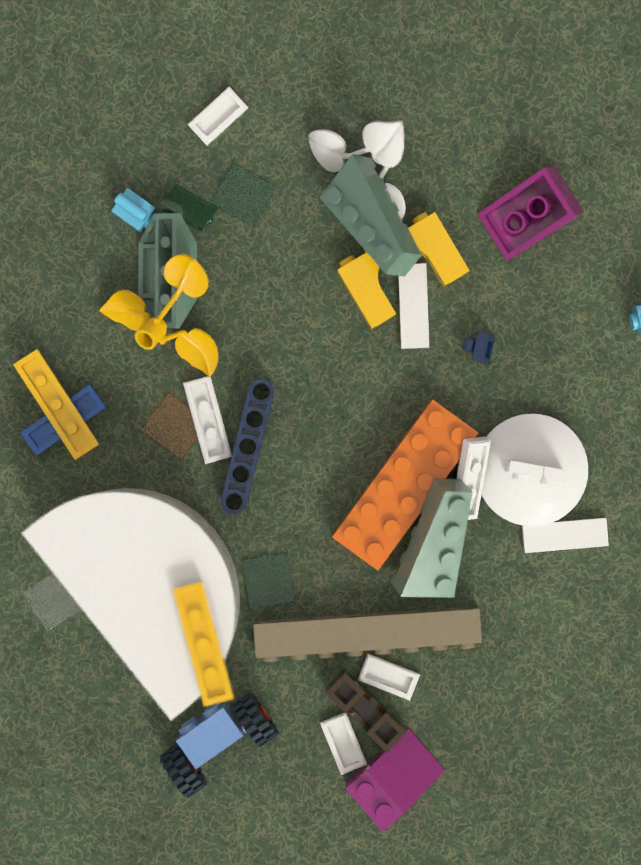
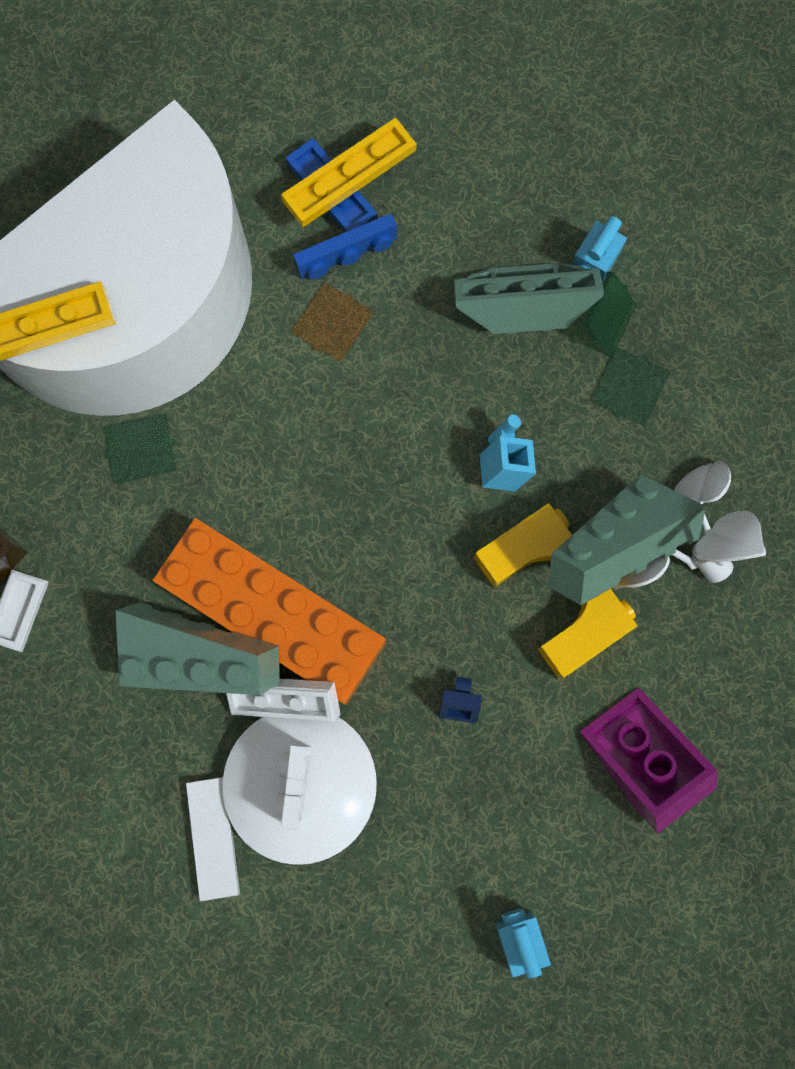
camera: 90 degrees right, 10 degrees down
(117, 410) = (346, 247): none -> blue plate
(129, 310) = (452, 269): yellow plant -> none
(207, 419) = (342, 359): white tile -> none
(218, 116) = (727, 348): white tile -> none
(241, 459) = (298, 397): dark blue beam -> none
(301, 298) = (507, 460): none -> medium azure brick
(367, 632) = (73, 579): dark tan brick -> none
(414, 308) = (508, 610): white tile -> none

